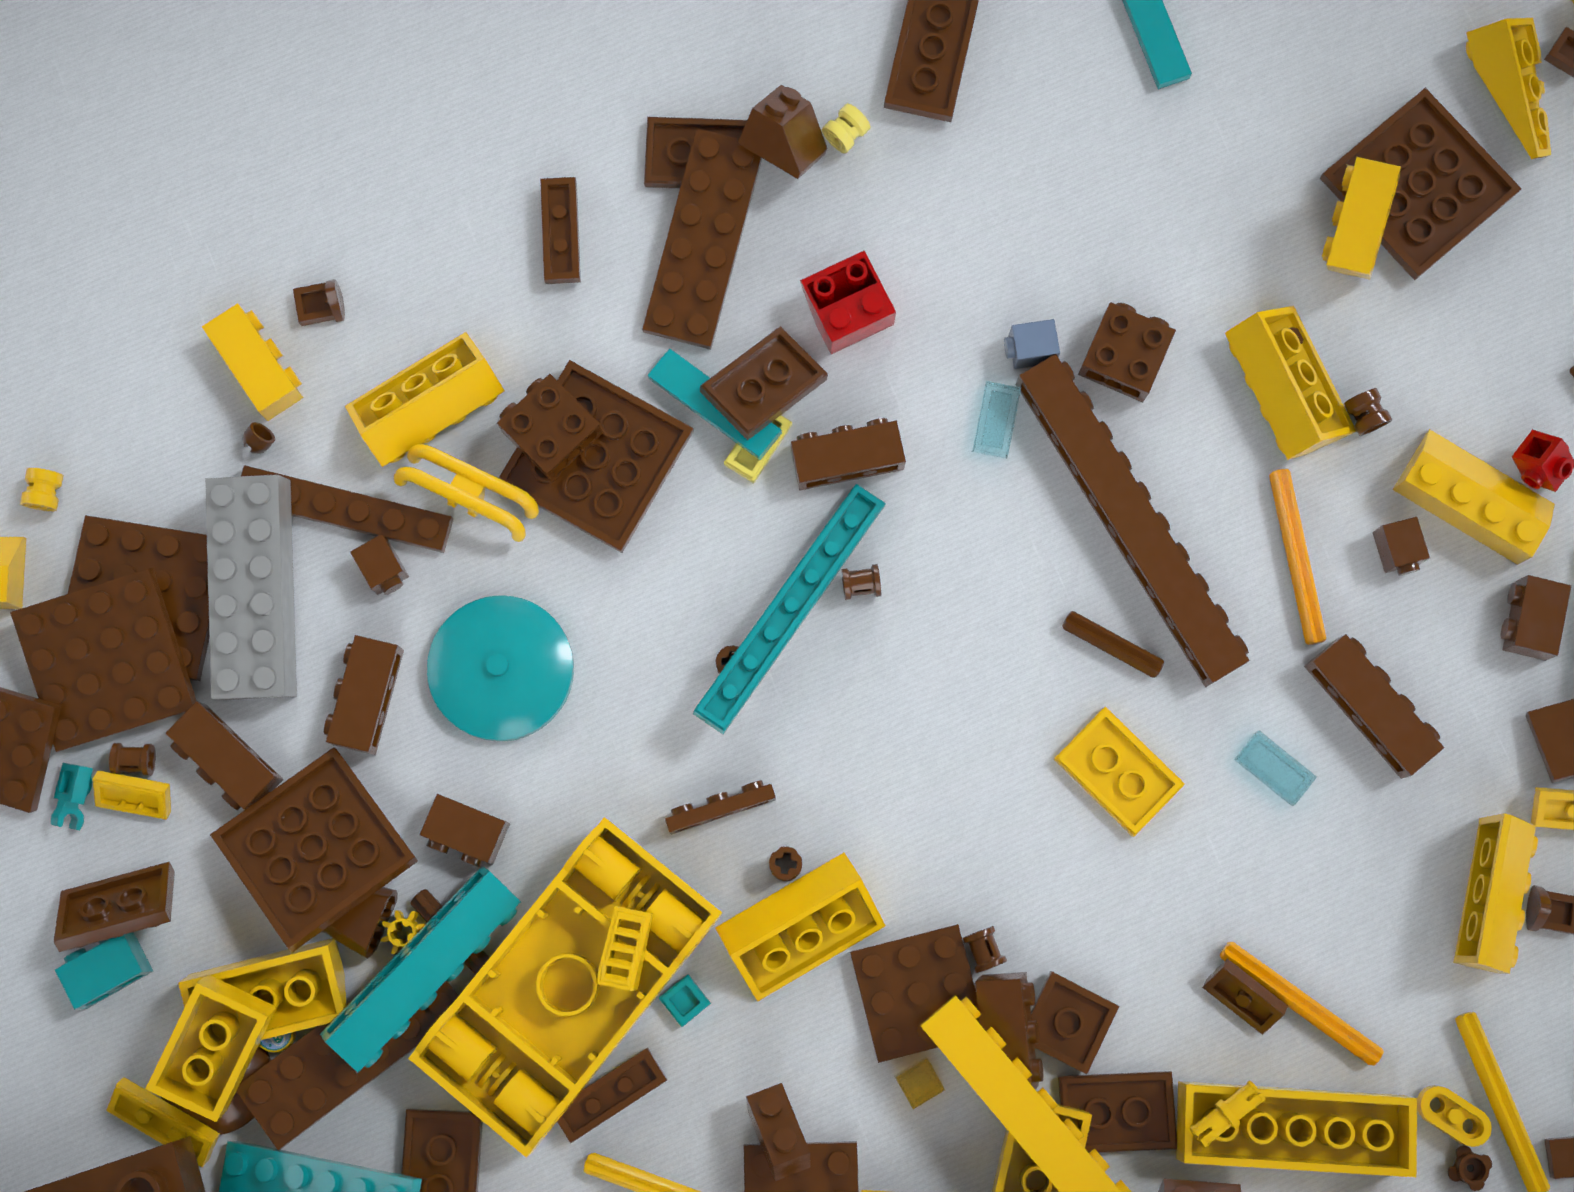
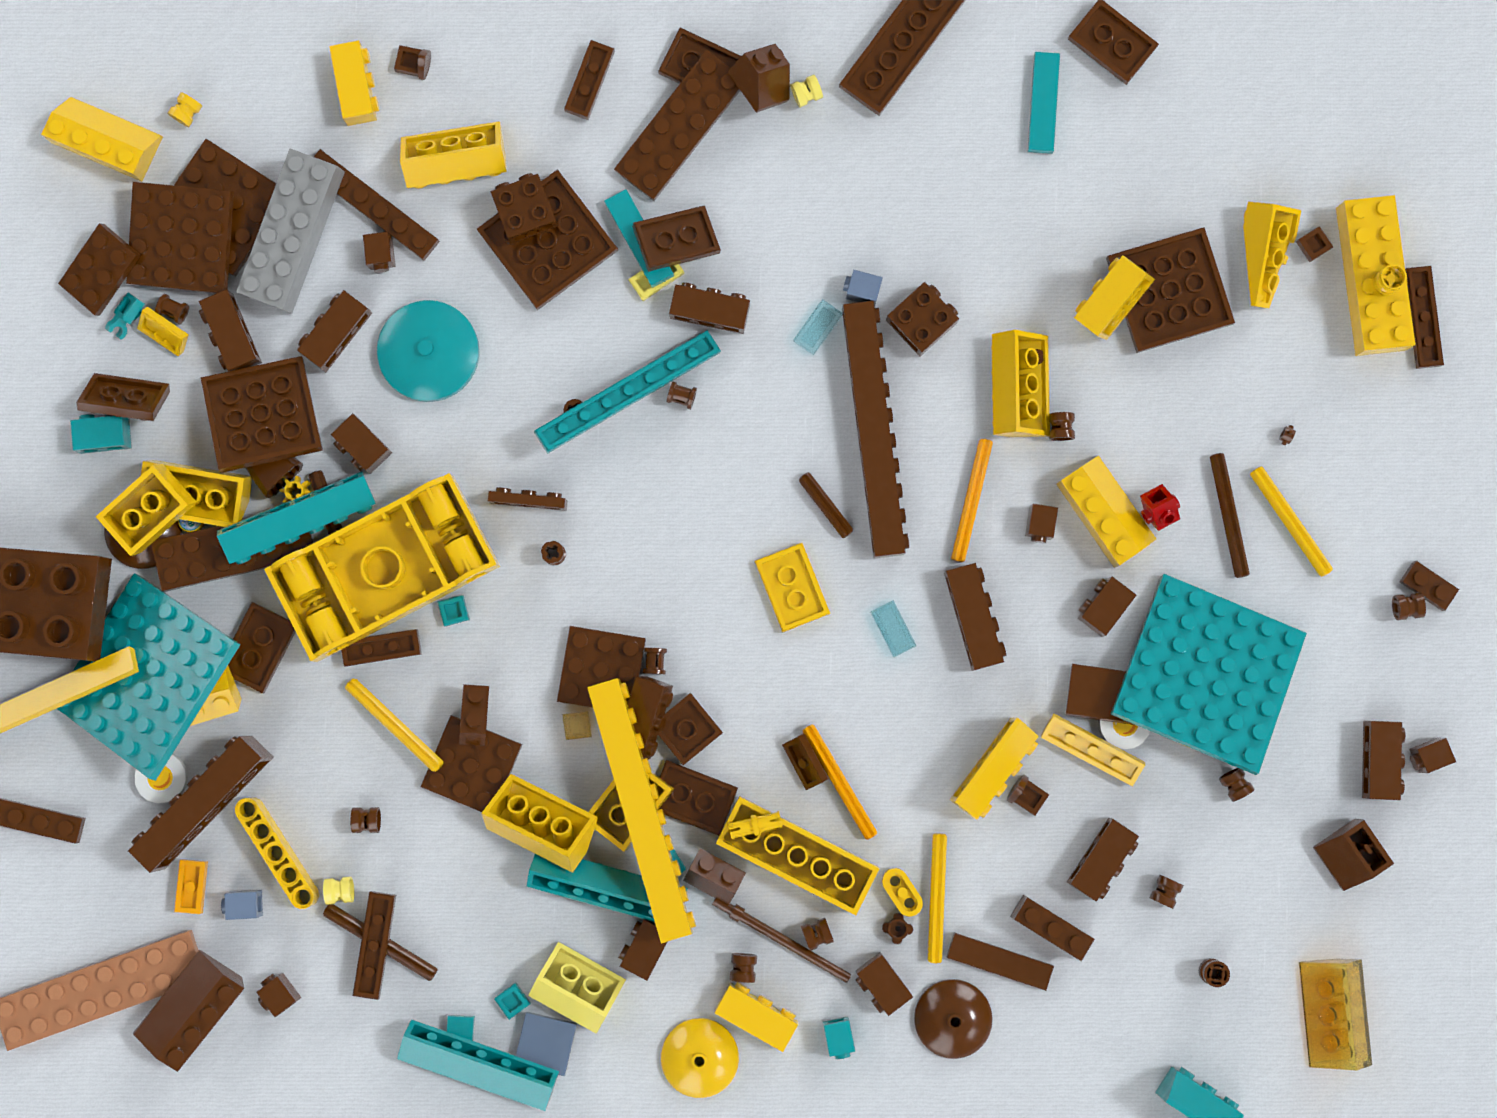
camera: 25 degrees right, 5 degrees up
(160, 1119) = (98, 541): yellow tile -> none
(258, 438) = (336, 134): reddish brown hinge -> none
(468, 488) = (455, 226): yellow piece -> none
(611, 945) = (412, 562): yellow slope -> none
(800, 926) = (545, 596): yellow slope -> none
(848, 302) = (754, 208): red slope -> none

